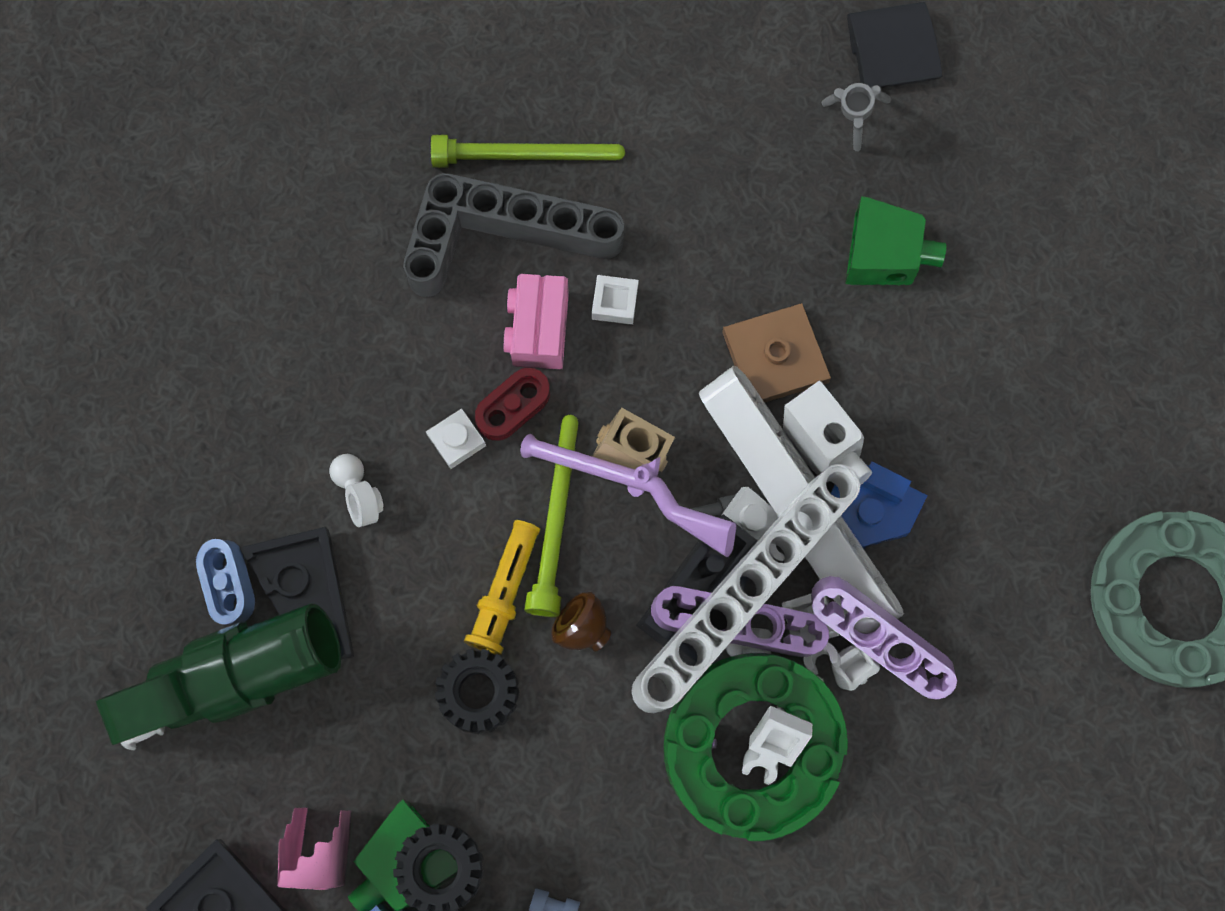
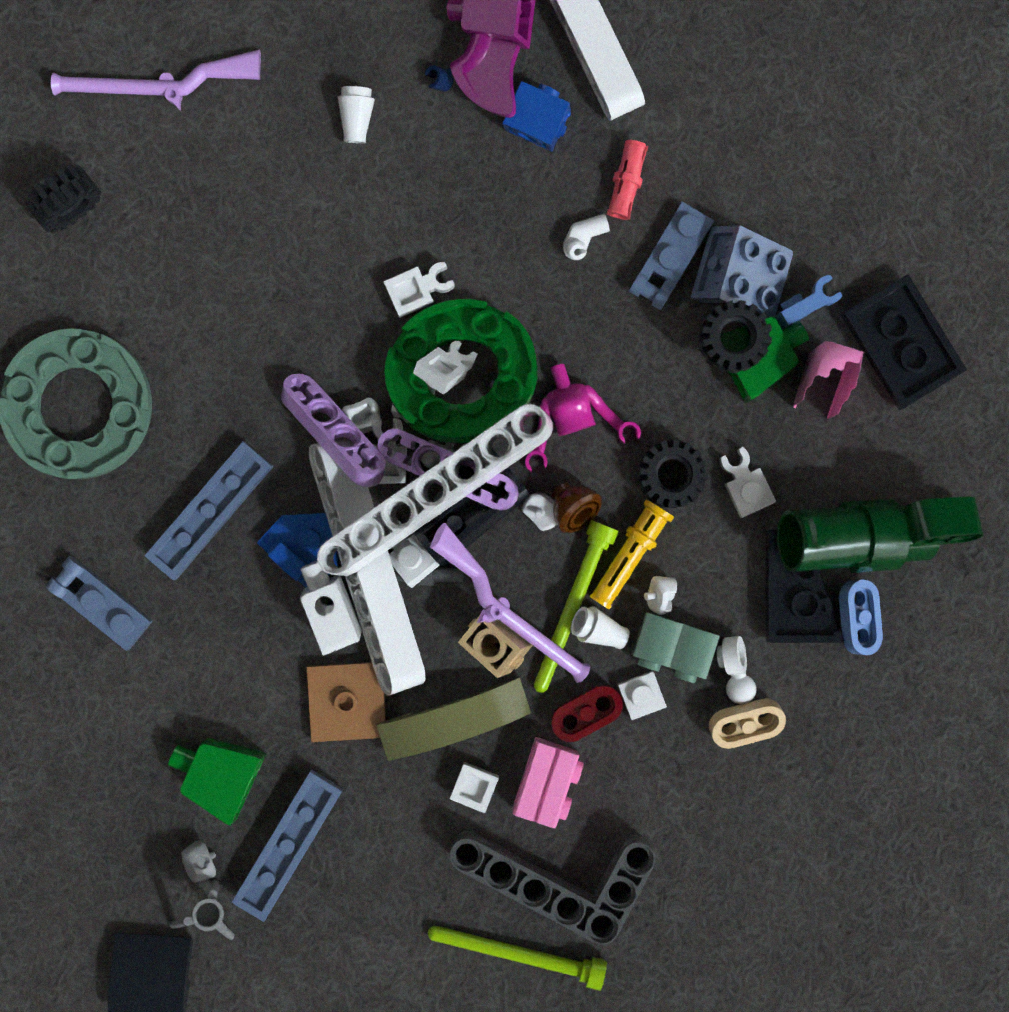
camera: 170 degrees left, 15 degrees up
(332, 435) = (746, 723): none -> tan plate
(383, 698) = (748, 489): none -> white plate
(430, 497) = (674, 646): none -> sand green brick
(459, 551) = (660, 594): none -> white piece
(522, 495) = (595, 627): none -> white cone
(612, 738) = (572, 411): none -> dark pink piece
(620, 612) = (540, 510): none -> white piece
(653, 359) = (454, 720): none -> olive slope
(794, 198) = (287, 845): none -> sand blue plate
(839, 834) = (412, 290): none -> white plate
(882, 160) = (198, 861): none -> light grey piece
(990, 518) = (209, 511): none -> sand blue plate
(1075, 390) = (99, 603): none -> sand blue plate

